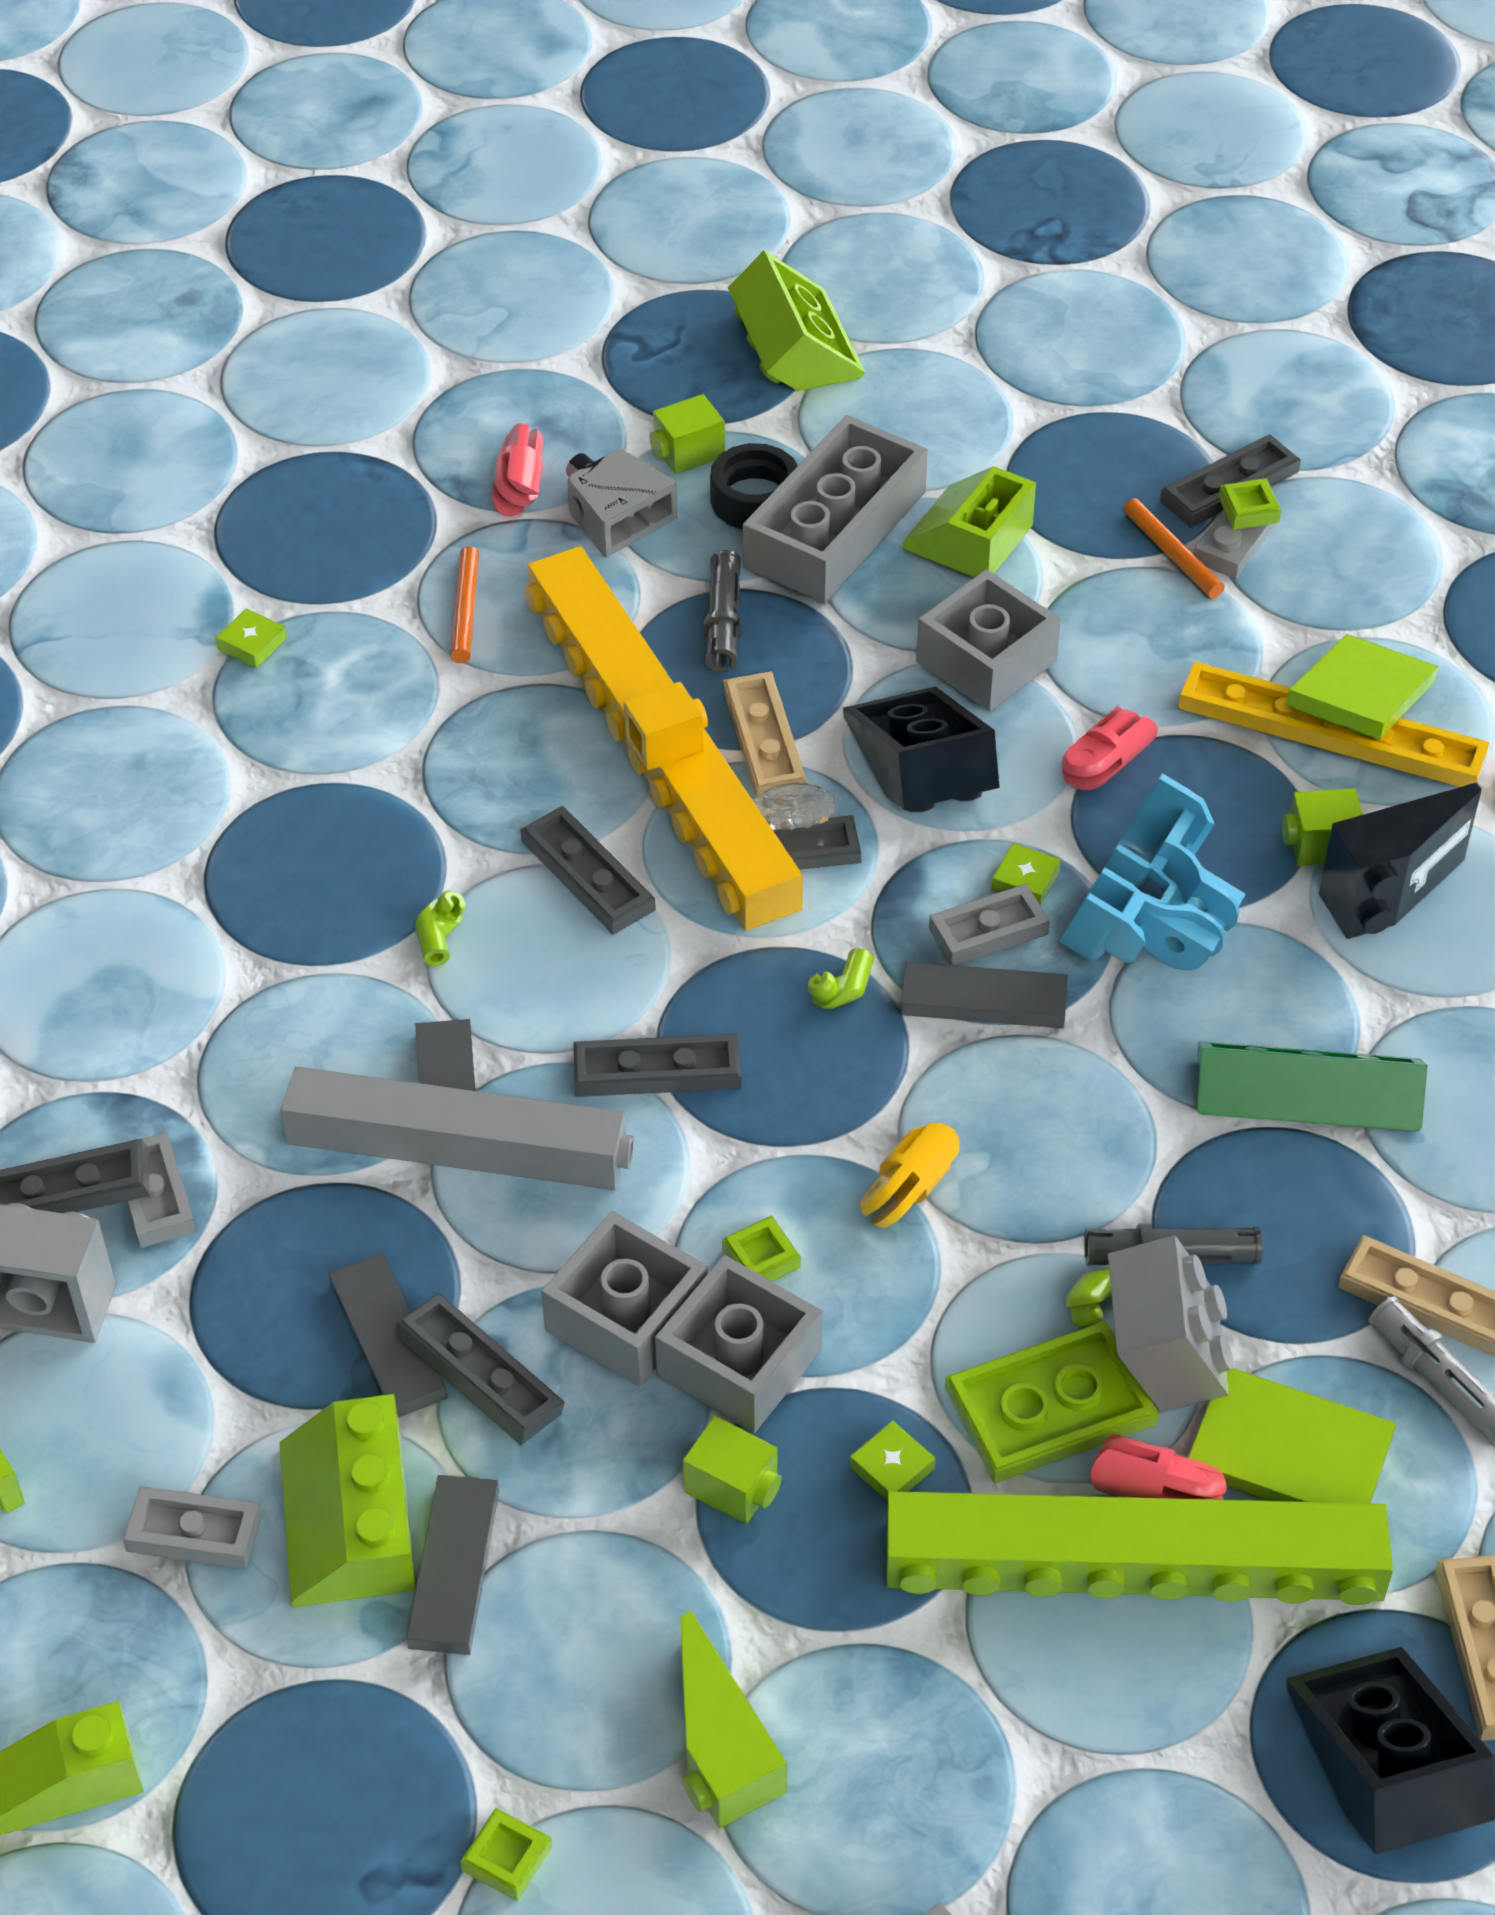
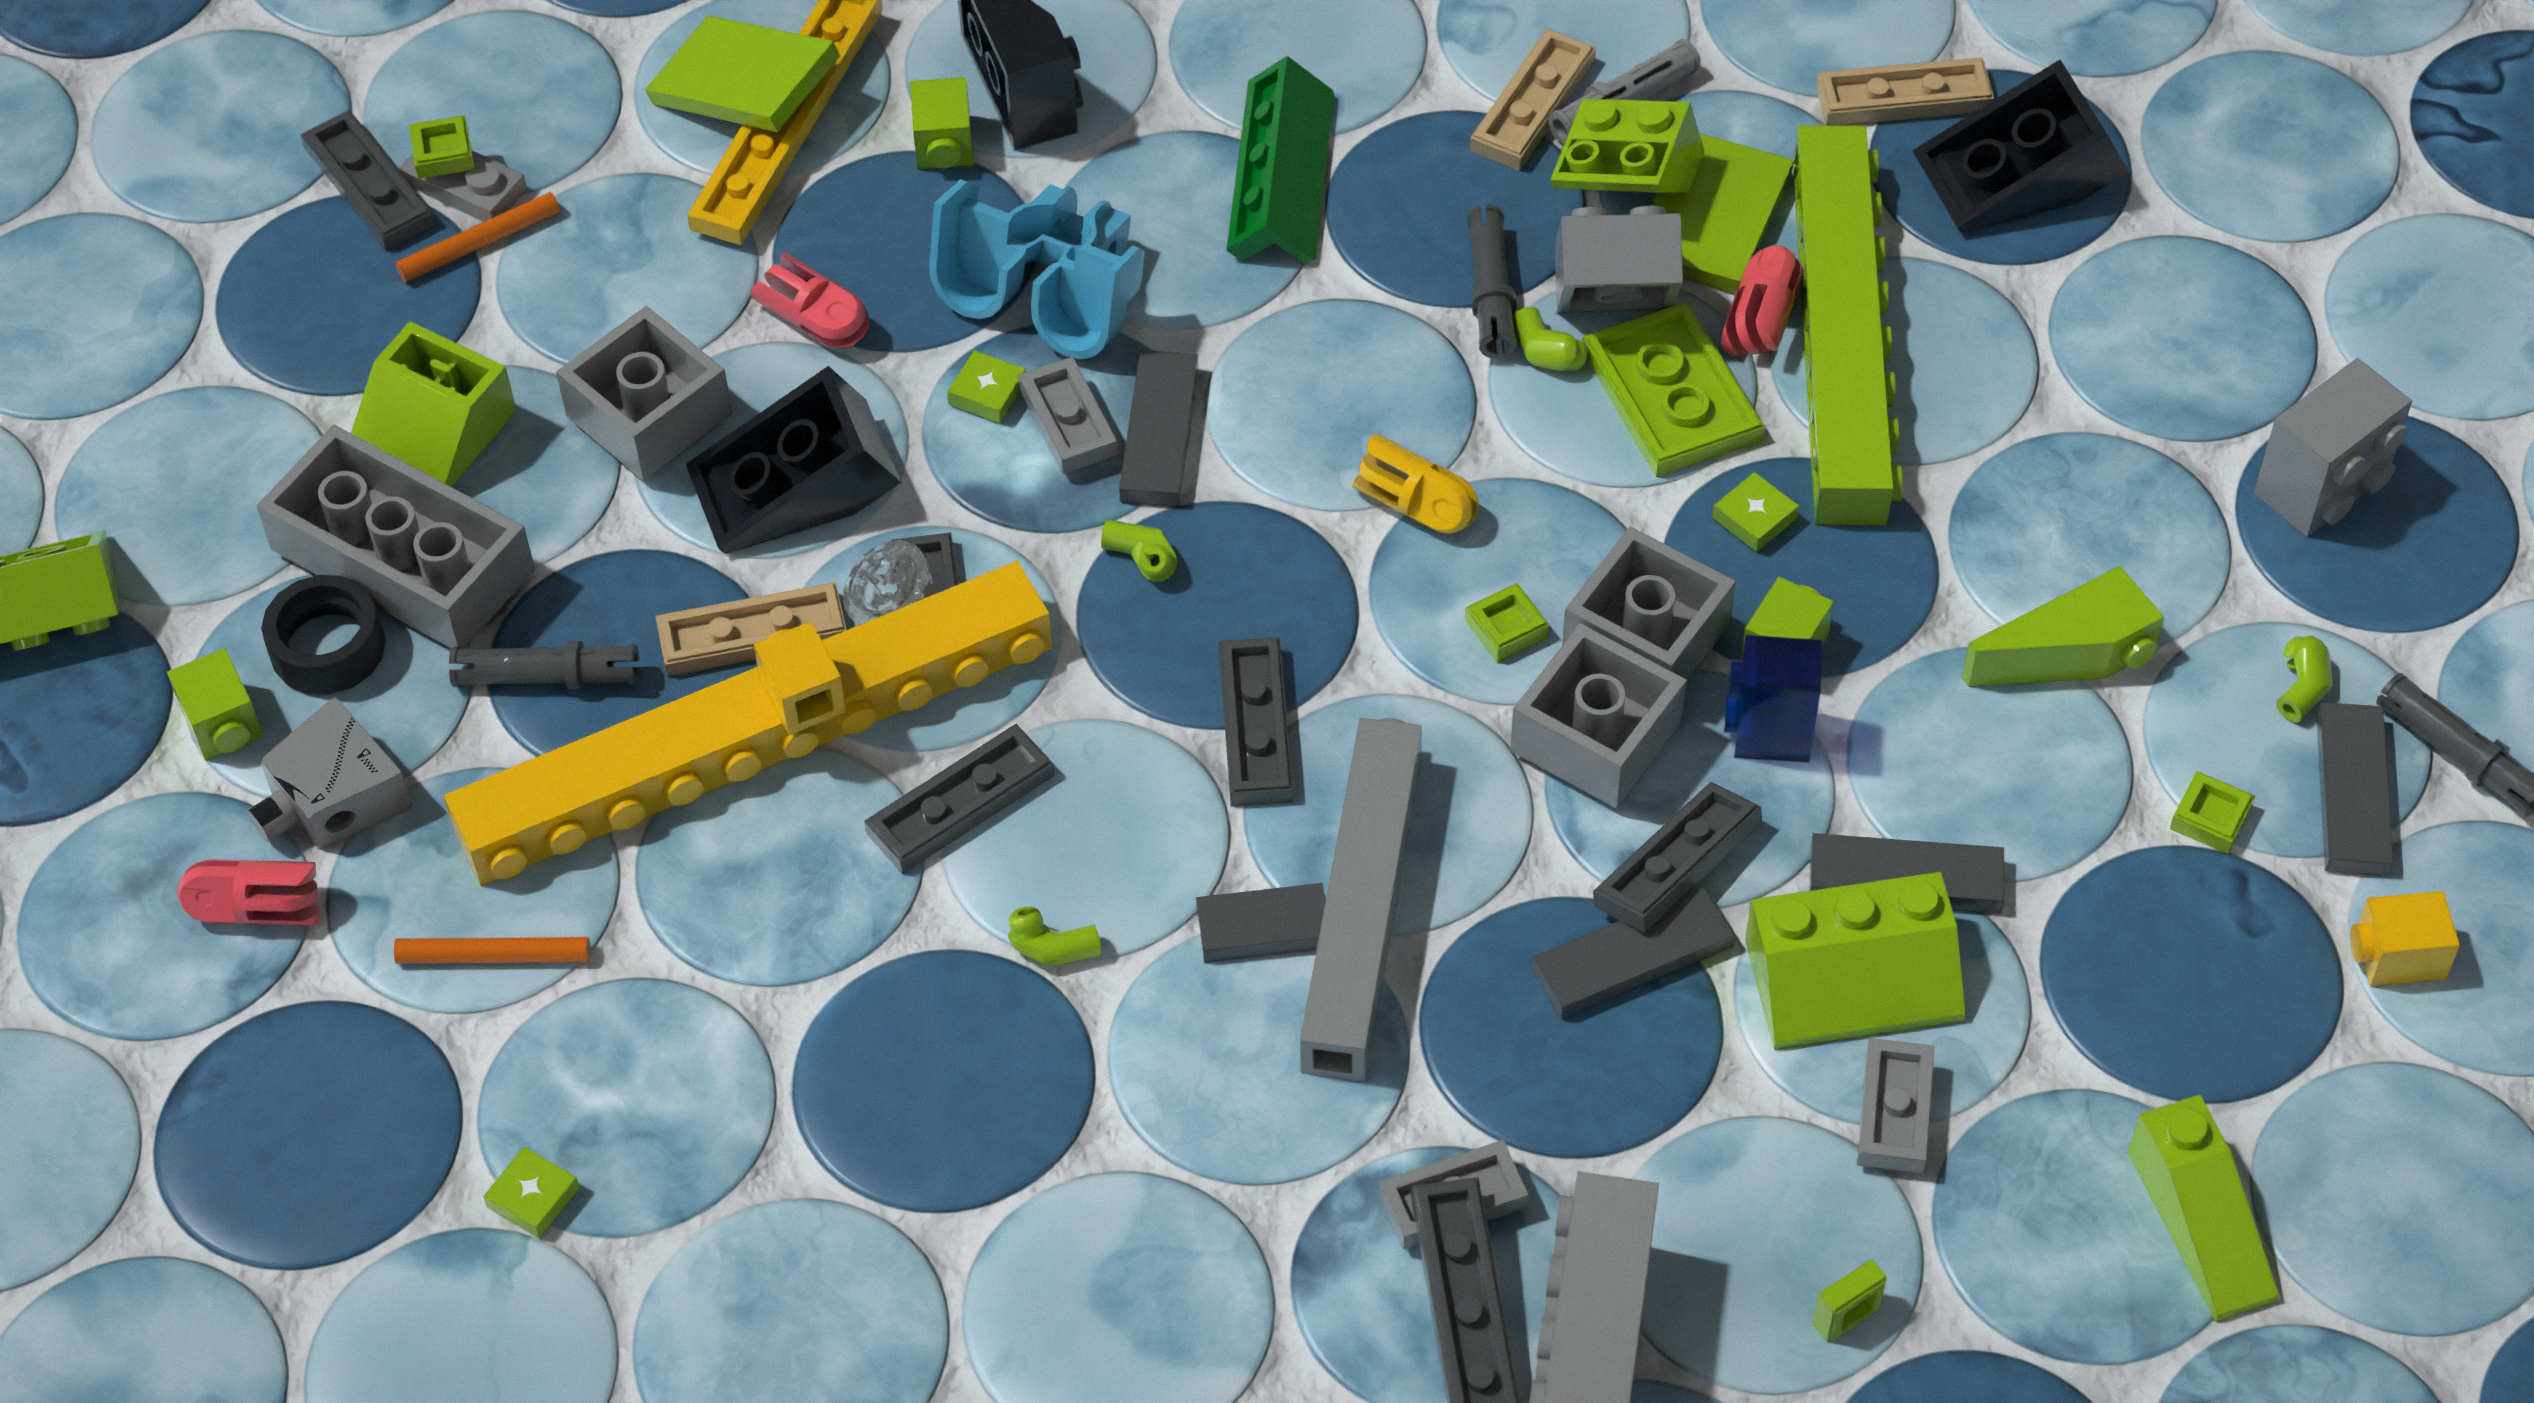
camera: 90 degrees left, 5 degrees up
(628, 1436) = (1774, 698): none -> clear blue brick
(1321, 1347) = (1630, 147): none -> lime slope

